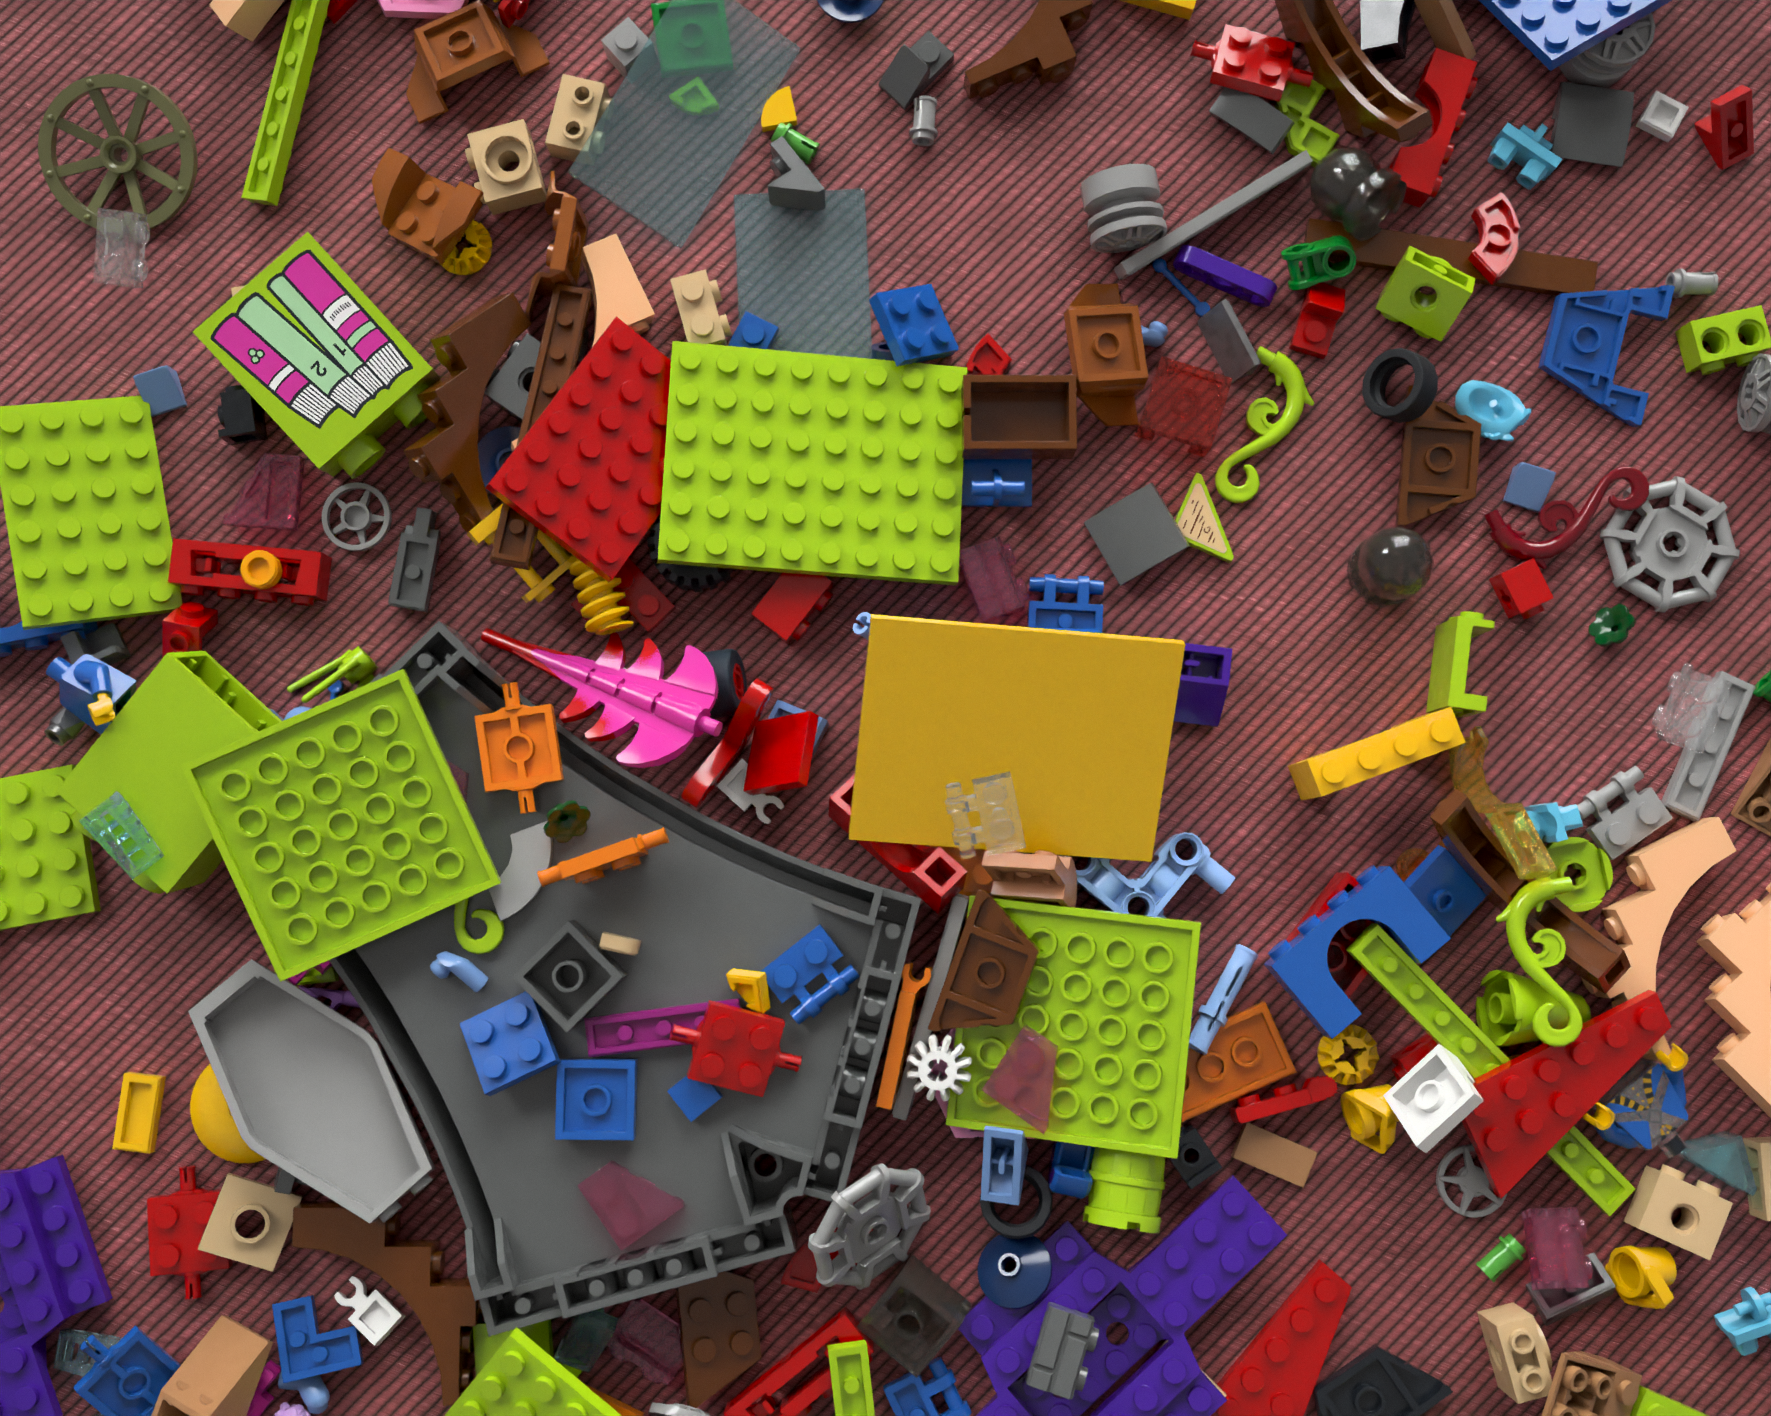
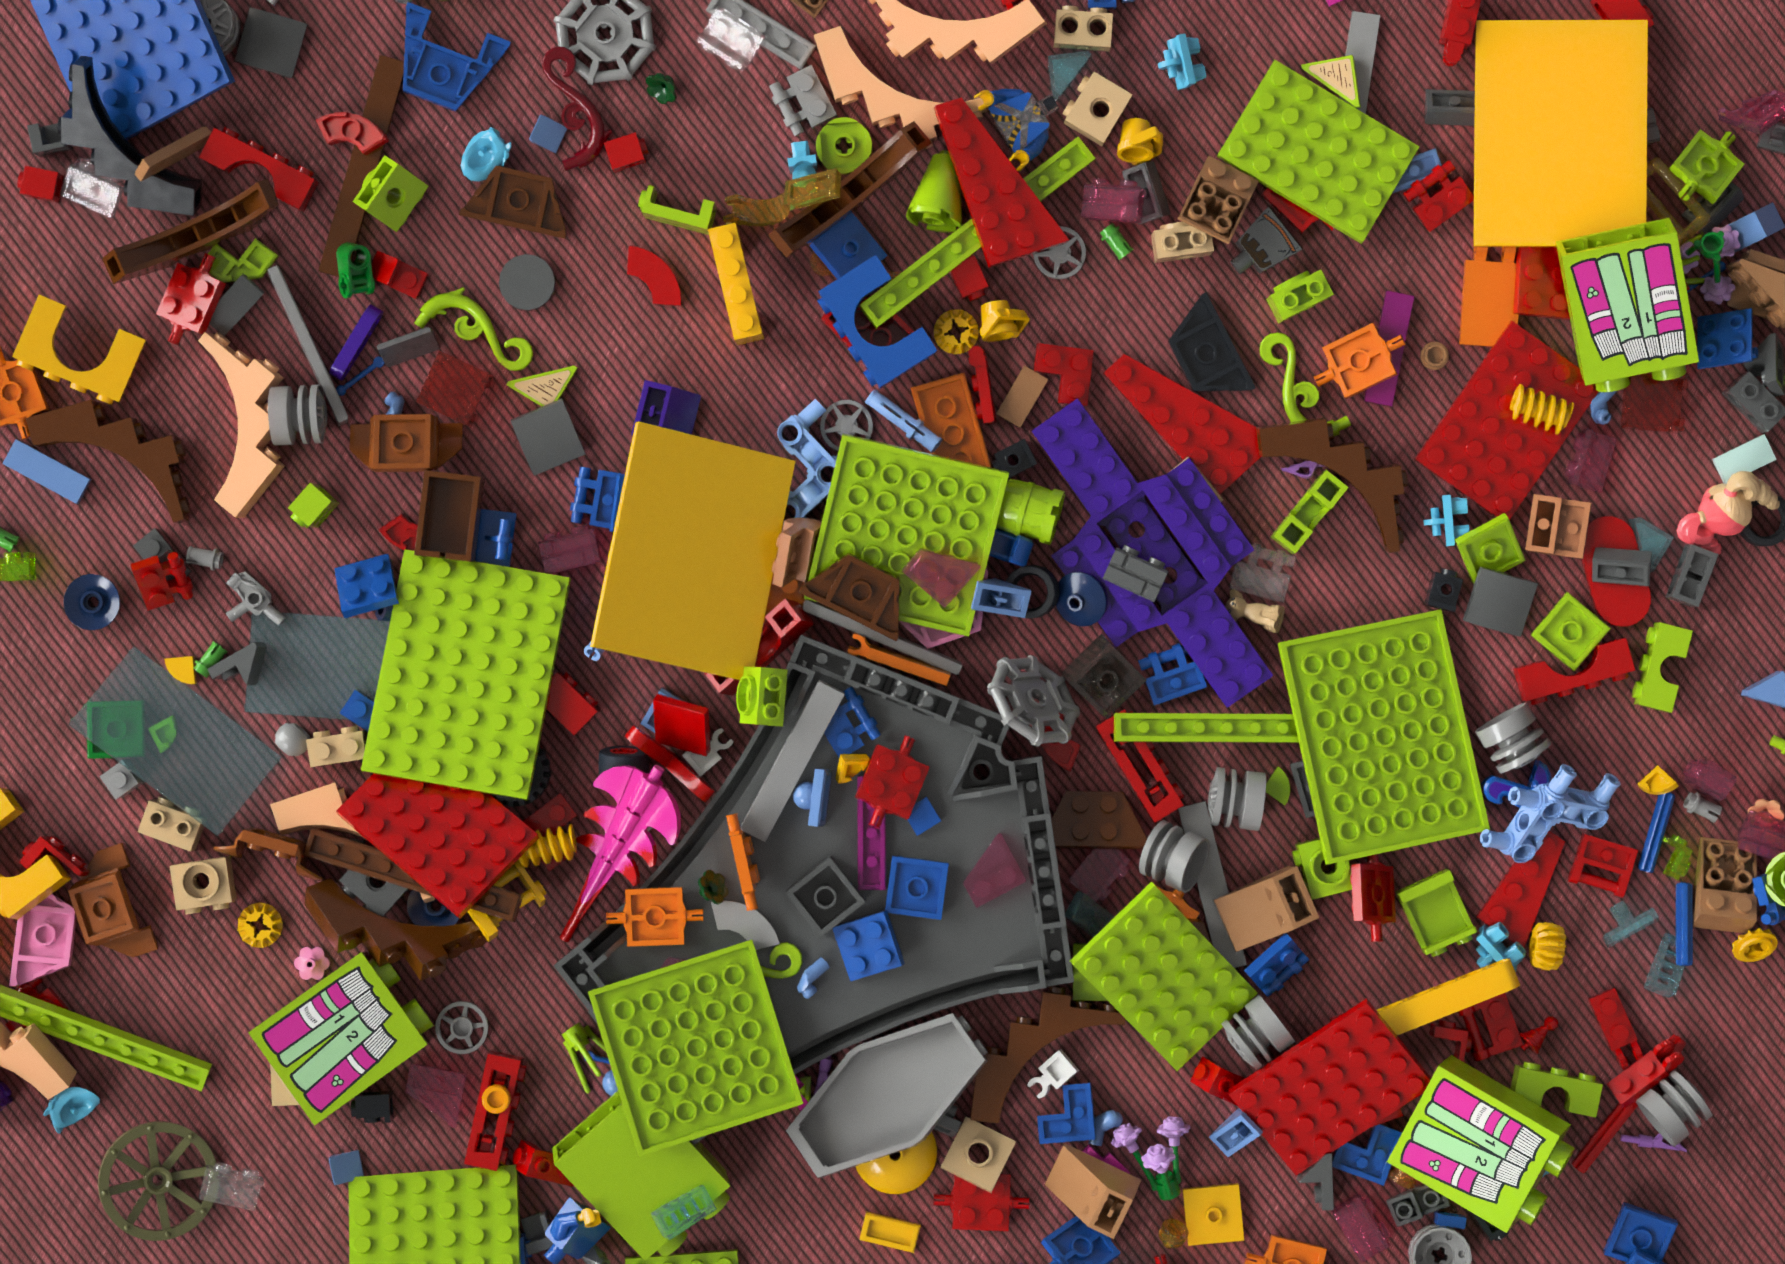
camera: 85 degrees left, 5 degrees up
(204, 36) = (70, 1107): none -> medium azure hat
(416, 563) = (504, 985): dark grey hinge -> none
(421, 208) = (228, 951): dark orange piece -> none
(426, 322) = (318, 960): none -> bright pink plant
(619, 943) = (807, 857): tan tile -> none
(703, 253) = (291, 739): none -> light grey piece
(704, 944) = (814, 796): none -> medium blue tile
(750, 908) = (792, 760): none -> light grey tile
(831, 857) = (762, 696): none -> lime brick
(879, 188) = (253, 597): none -> light grey piece
(881, 58) = (153, 583): none -> red plate
(924, 1065) = (923, 646): white gear -> none
(997, 811) = (746, 571): clear plate -> none
(1008, 242) = (312, 506): none -> lime brick
(1053, 164) = (253, 464): none -> light nougat arch
(1208, 918) = (845, 423): none -> light grey wheel
(1327, 1215) = (1072, 365): none -> red plate
(1332, 484) = (527, 282): none -> dark grey tile
(1356, 191) = (305, 236): clear smoke tile -> none
(1365, 649) = (656, 275): none -> red tile
(1390, 566) = (596, 250): clear smoke tile -> none
(1421, 395) = (463, 208): black tyre -> none
(1433, 1097) = (987, 283): white plate -> none
(1516, 913) = (866, 200): lime plant -> none
(1527, 150) = (280, 108): medium azure hips -> none

